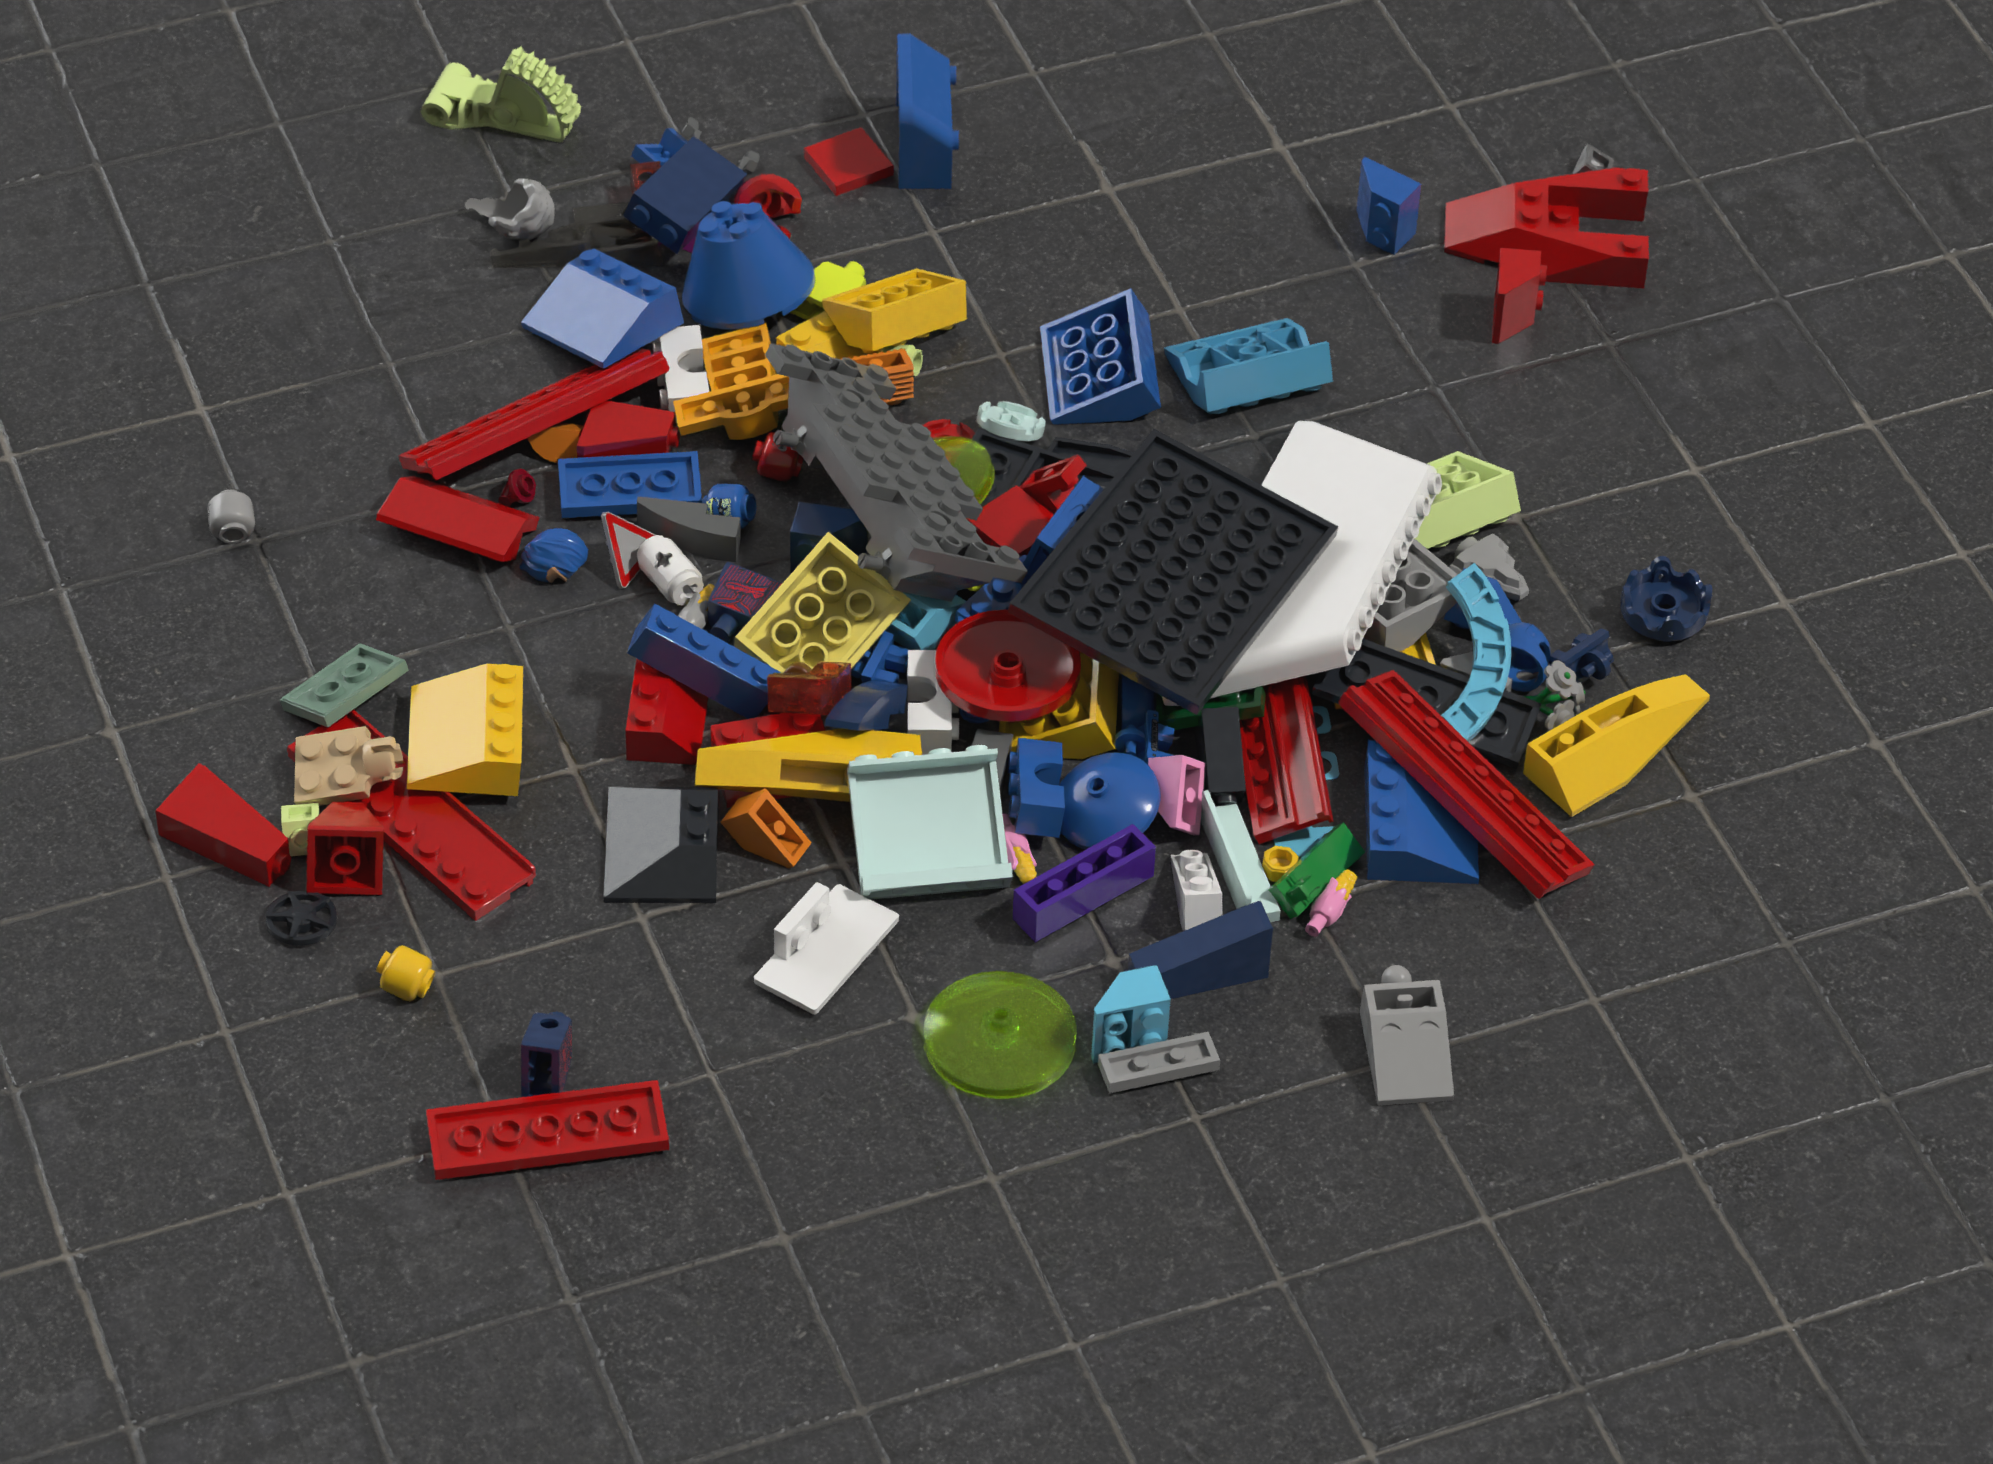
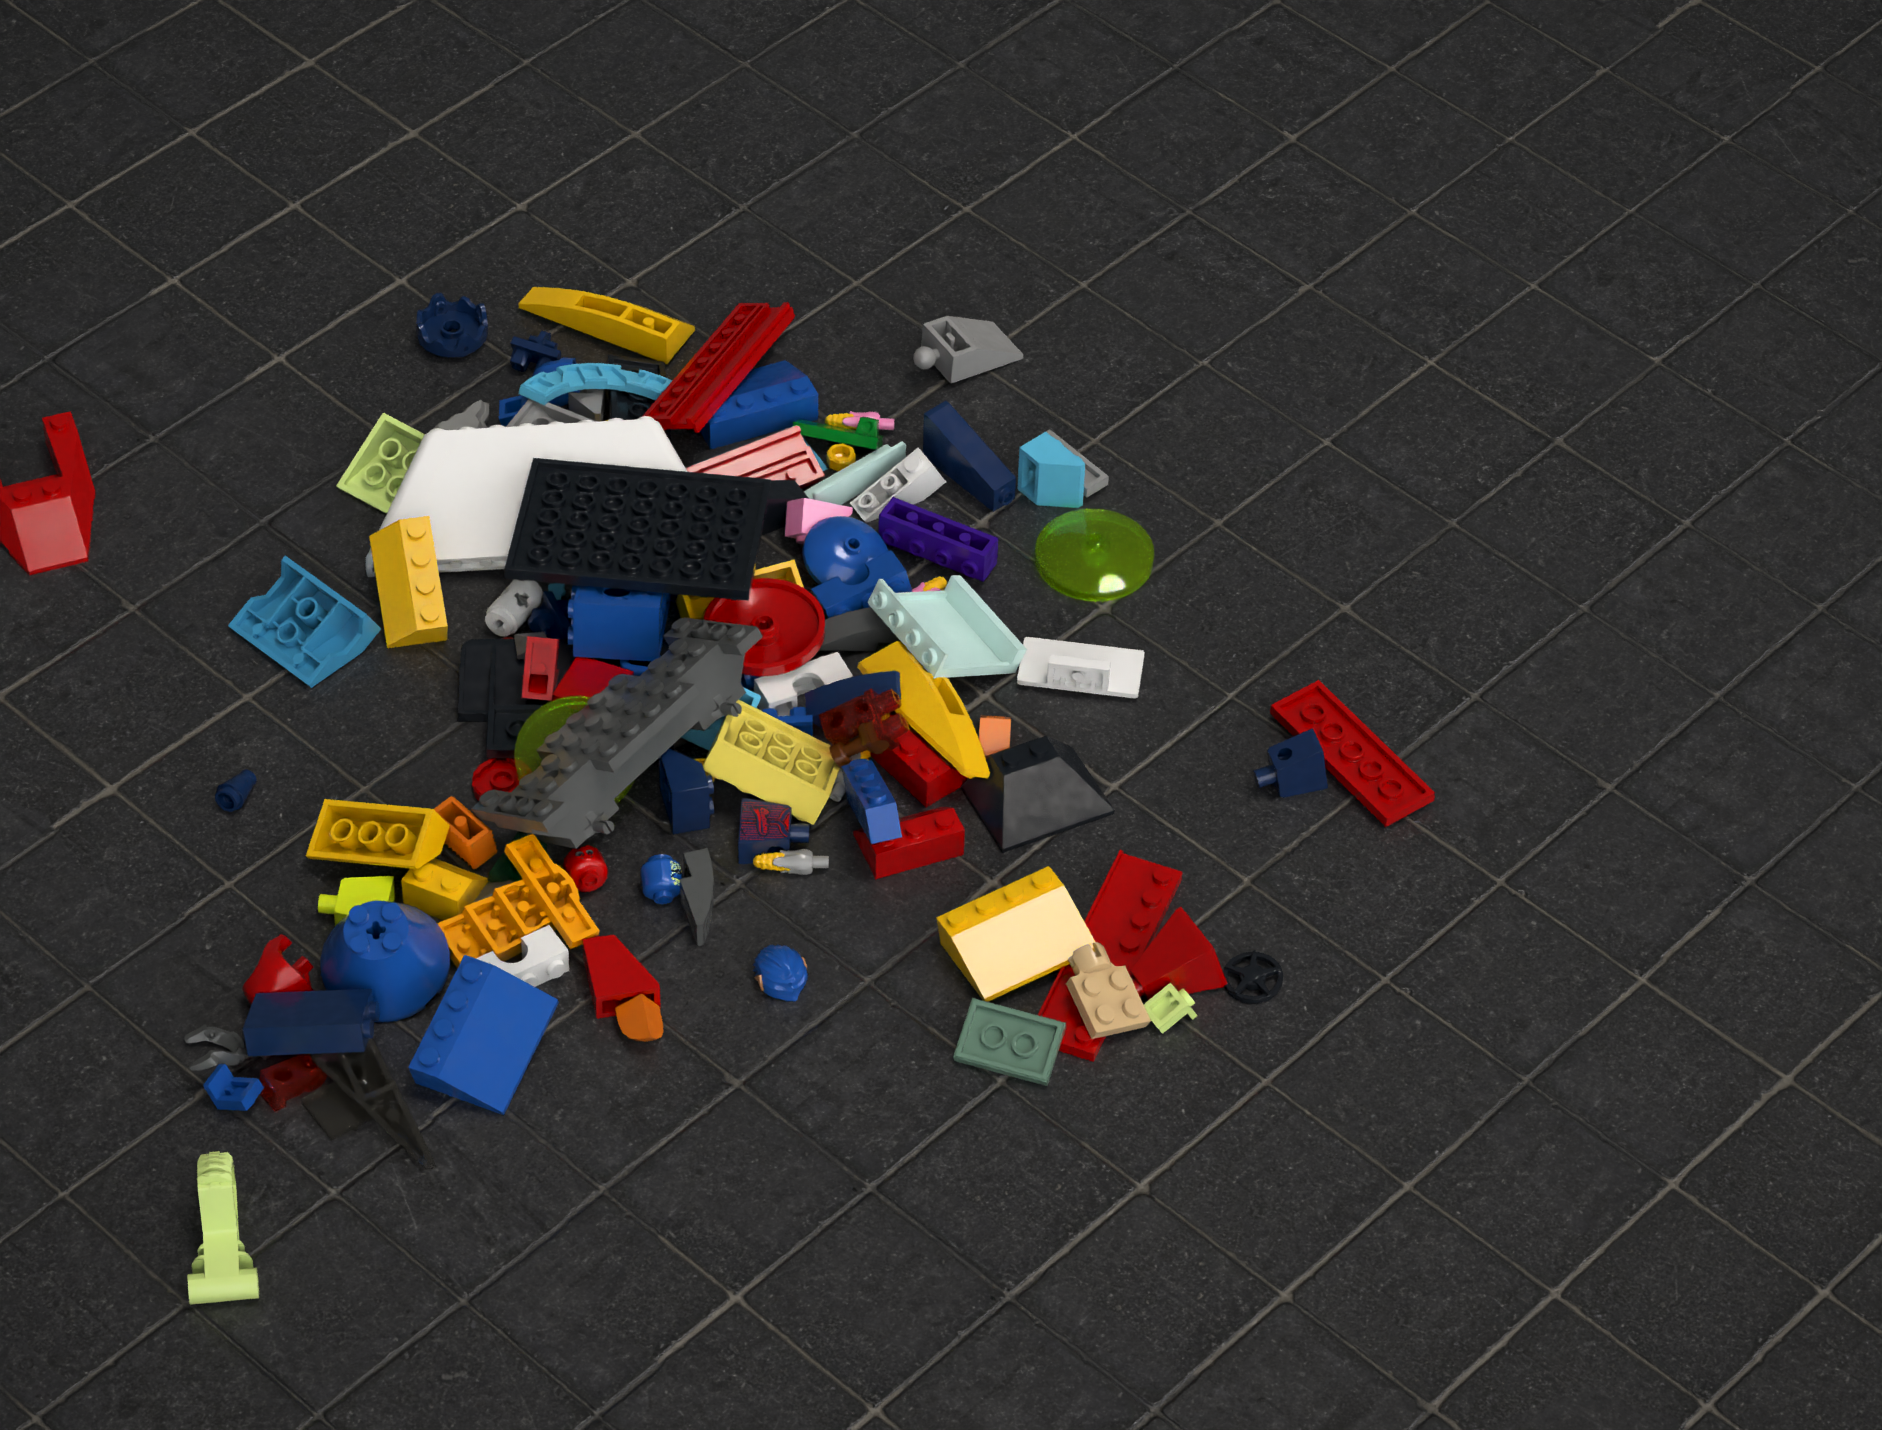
camera: 115 degrees left, 0 degrees up
(223, 827) = (1203, 1056): red slope -> none
(231, 516) = (867, 1200): light grey head -> none
(405, 973) = (1271, 882): yellow head -> none
(456, 518) = (777, 1048): red slope -> none
(518, 488) = (714, 1029): dark red plate -> none
(523, 213) = (373, 1152): light grey hair -> none
(532, 414) = (641, 1044): red plate -> none
(615, 482) = (670, 954): blue plate -> none
(623, 543) = (748, 929): light grey piece -> none
(669, 569) = (757, 887): white piece -> none
(848, 161) = (166, 967): red tile -> none
(924, 115) = (102, 891): blue windscreen -> none
(1010, 421) = (460, 740): light aqua tile -> none
(1041, 254) = (233, 792): none -> dark blue cone
(1101, 363) = (356, 710): blue slope -> none
(1145, 739) = (779, 550): blue hips -> none
(1251, 435) = (409, 583): none -> yellow slope
(1387, 206) = (77, 583): blue slope -> none
(1517, 292) = (152, 480): red slope -> none
(1560, 680) = (581, 347): light grey plant -> none

